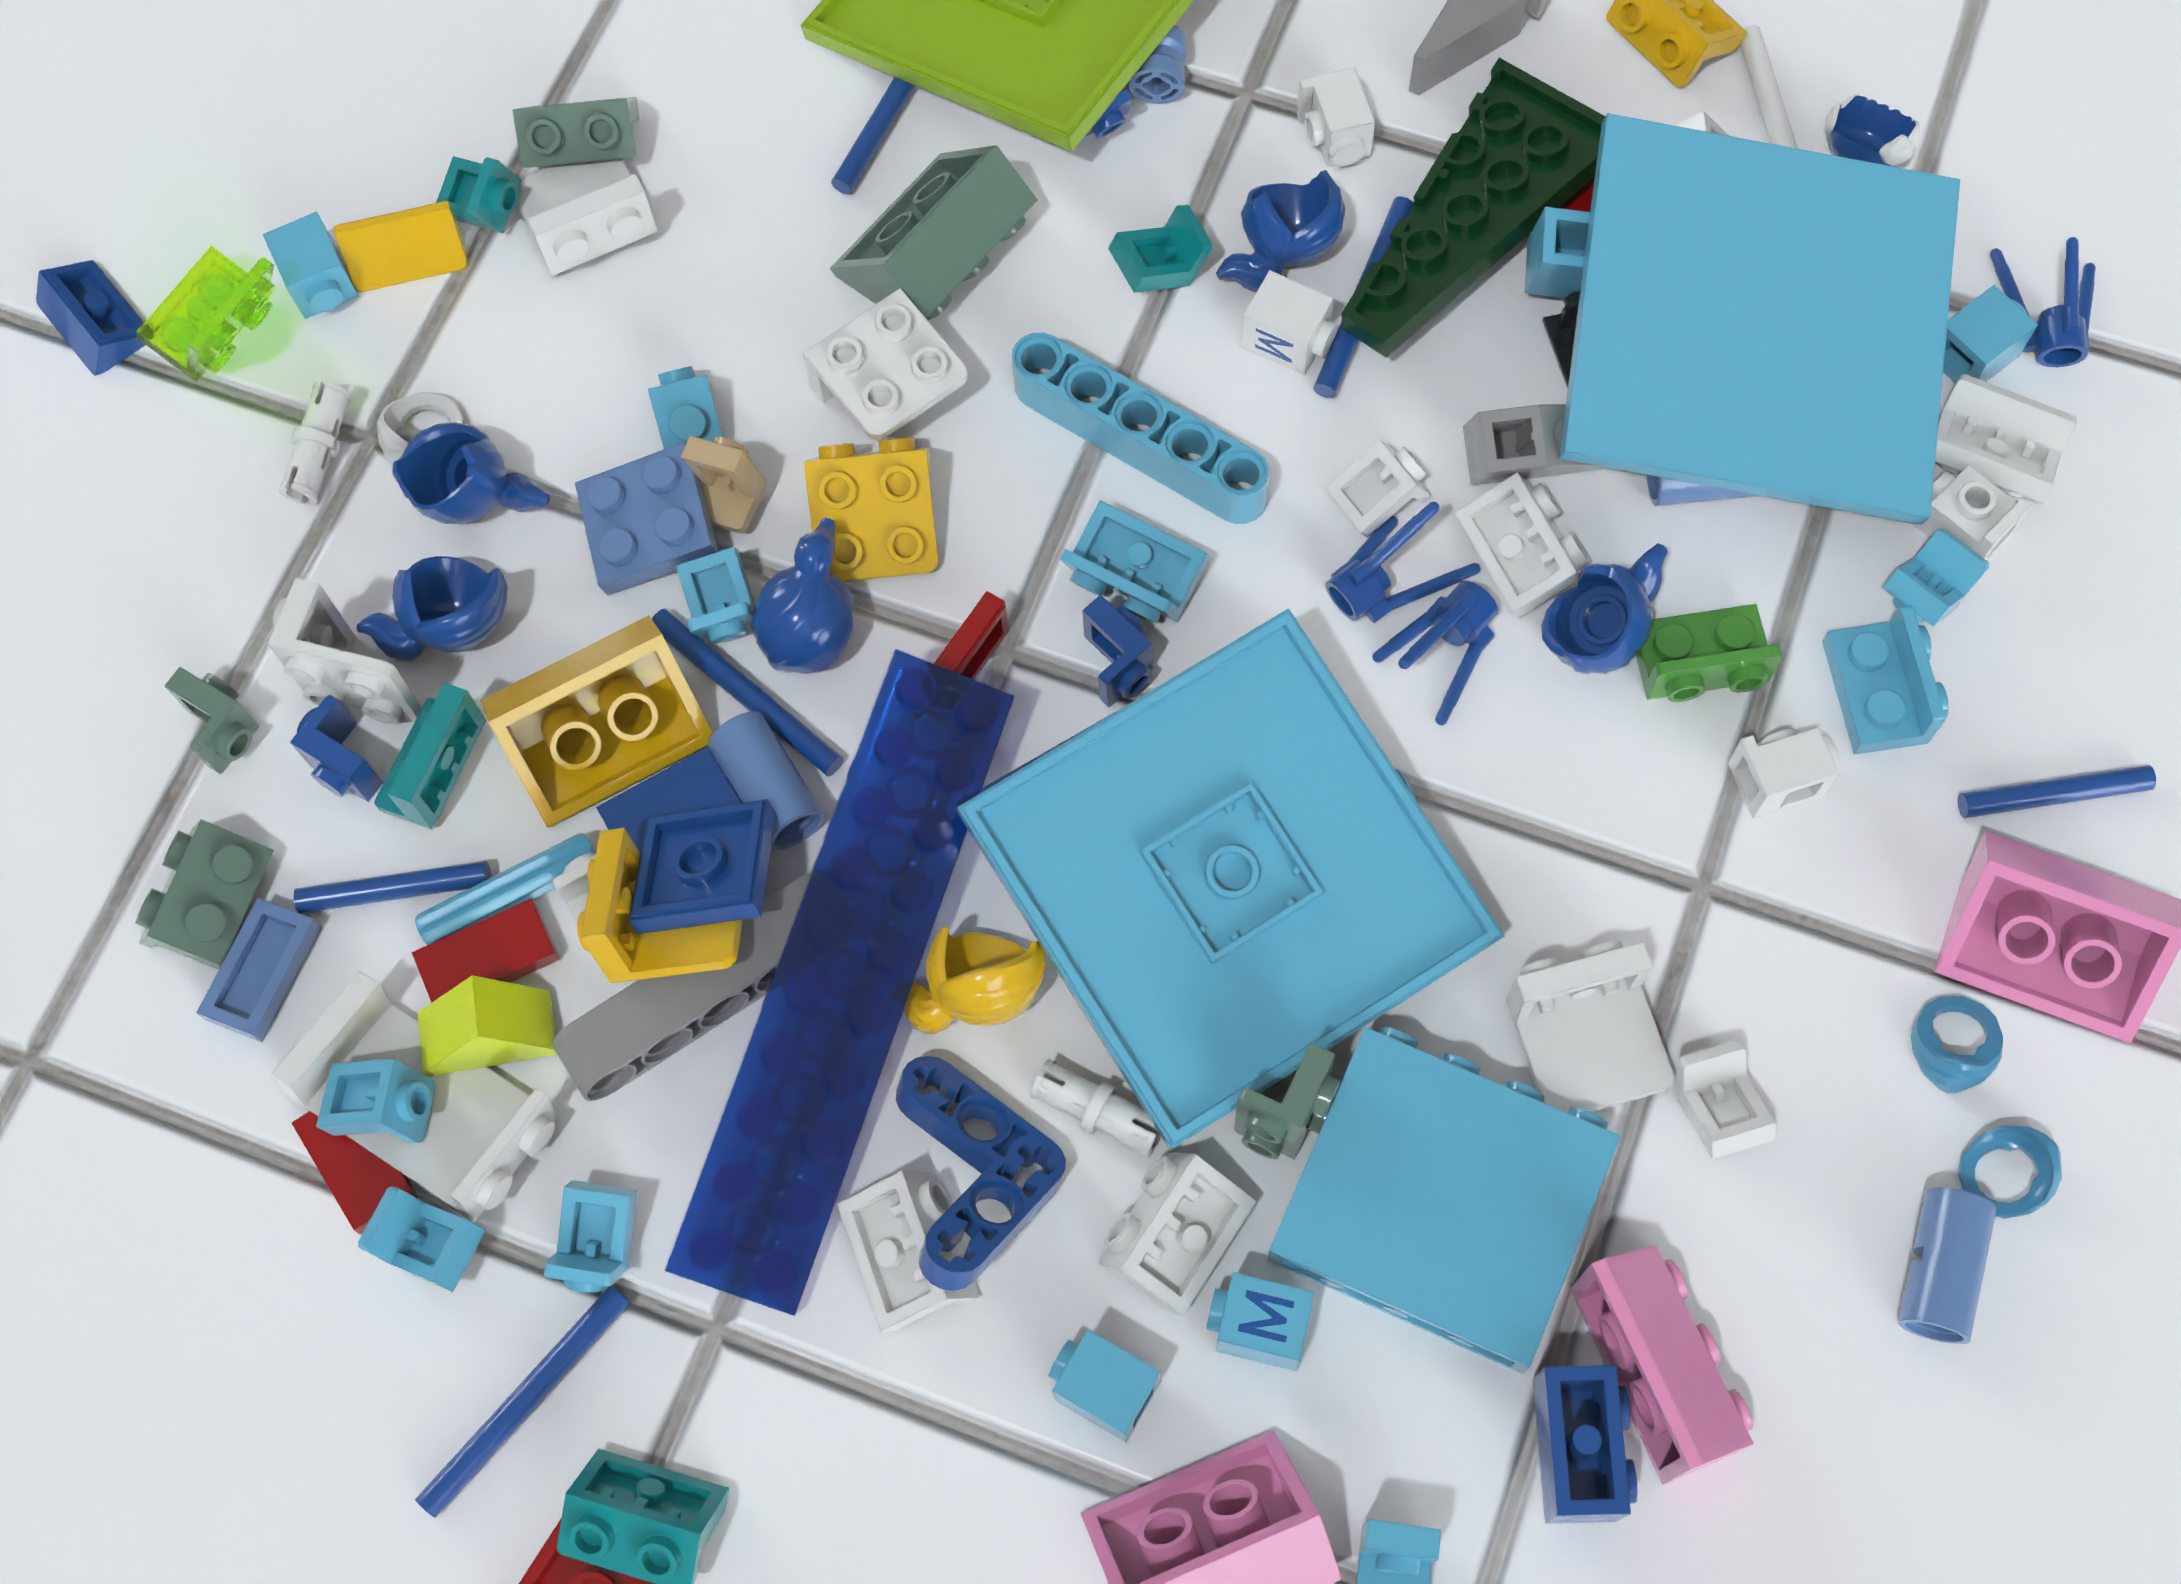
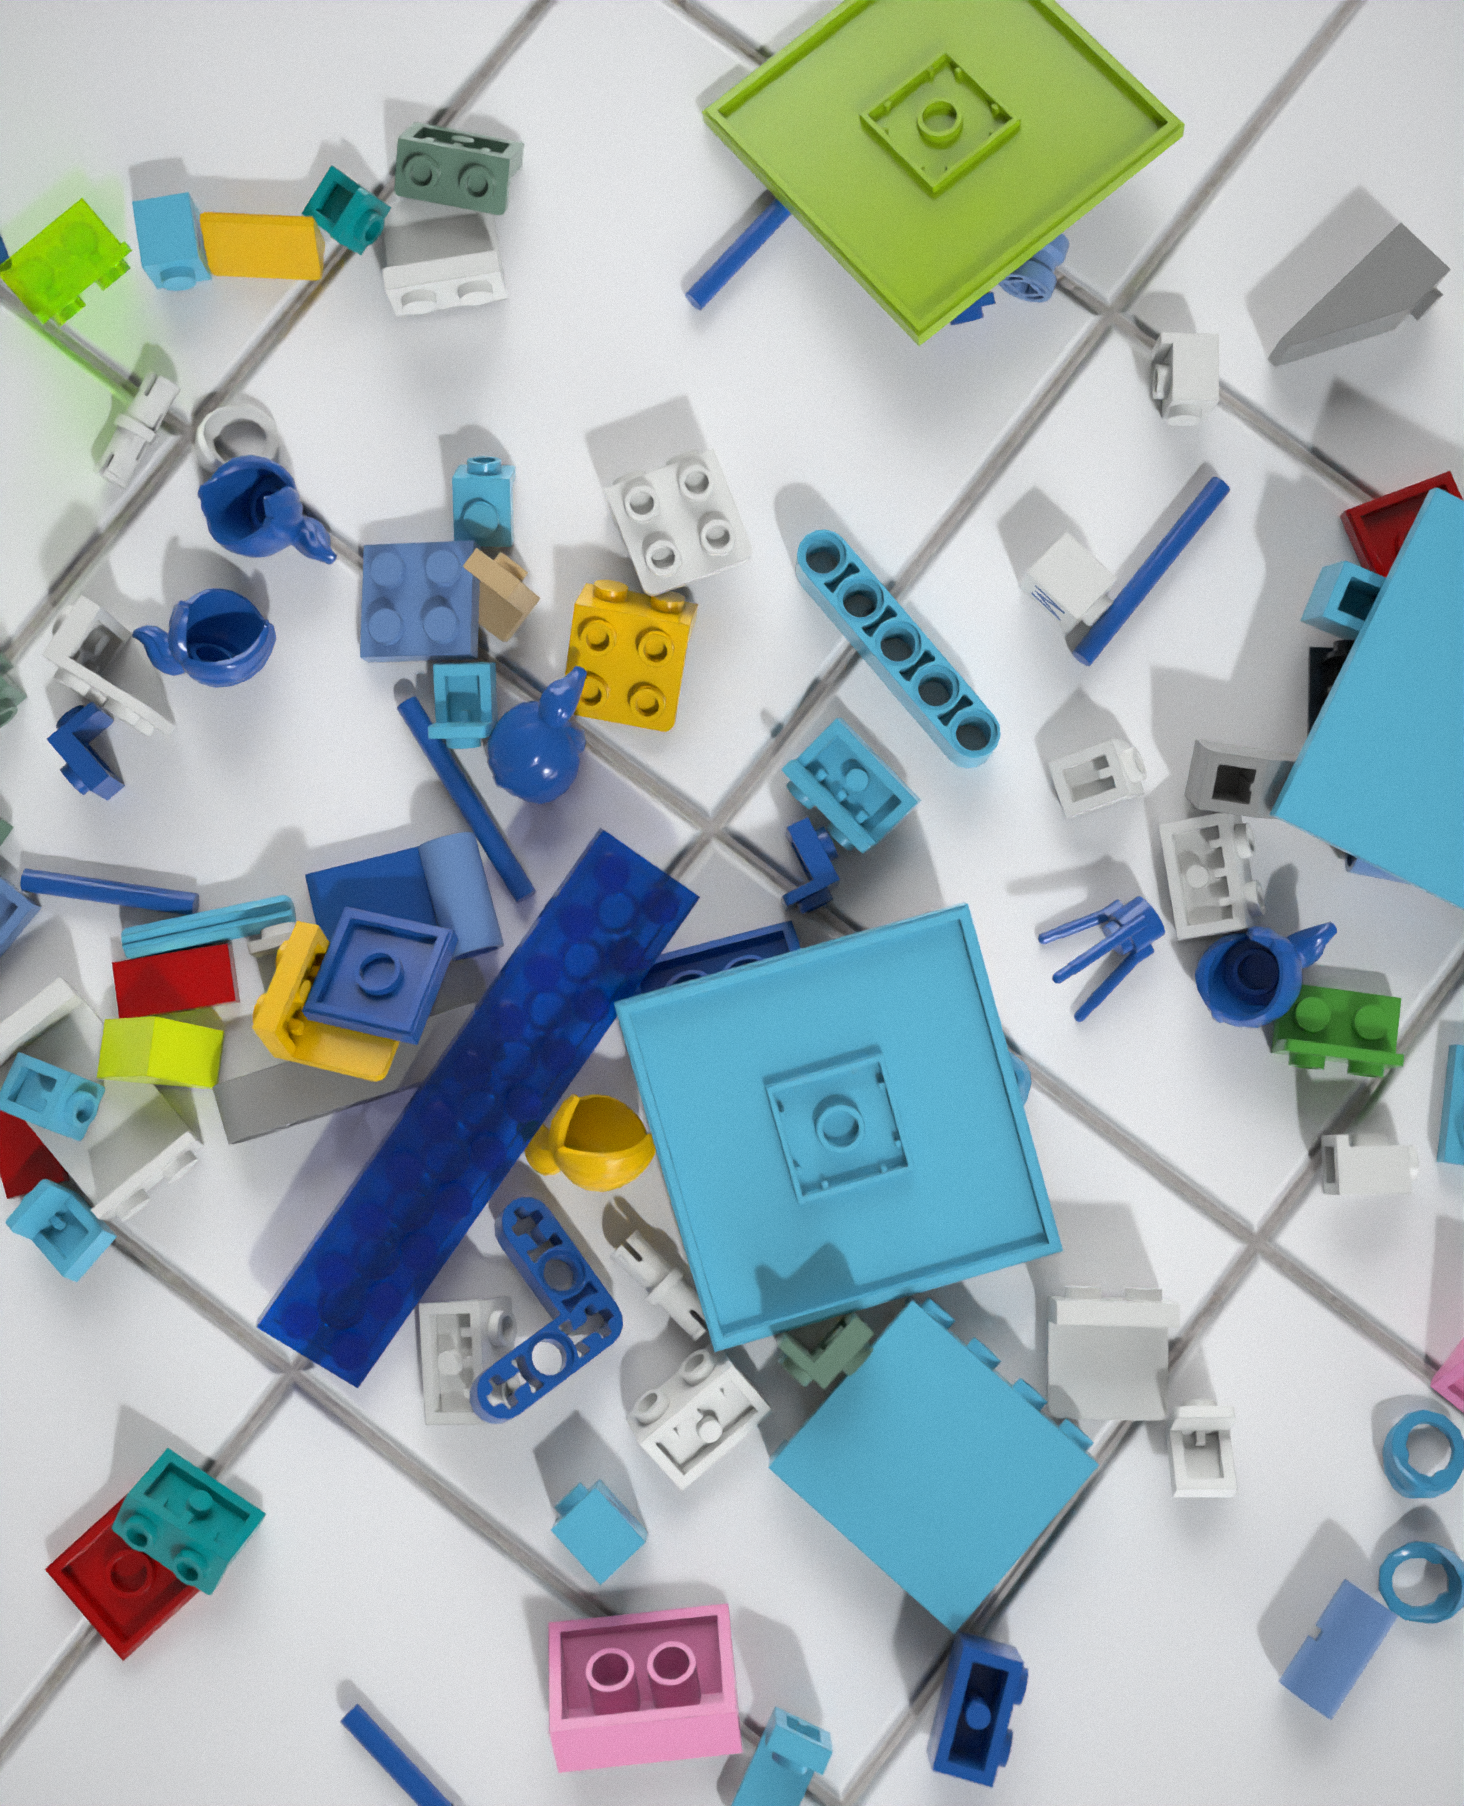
camera: 15 degrees right, 15 degrees up
(432, 757) = (168, 784): teal bracket -> none
(521, 1402) = (115, 1387): blue bar -> none
(593, 1236) = (205, 1270): medium azure bracket -> none
(597, 720) = (325, 791): yellow slope -> none
(939, 230) = (768, 384): sand green slope -> none
(976, 637) = (678, 824): red tile -> none
(1162, 255) = (973, 472): teal bracket -> none
(1261, 1320) = (745, 1517): medium azure brick -> none
(1286, 228) = (1098, 482): blue hair -> none
(1361, 582) = (1050, 869): blue plant -> none
(1480, 198) = (1309, 498): dark green wing -> none
(1663, 1361) = (1068, 1662): bright pink slope -> none

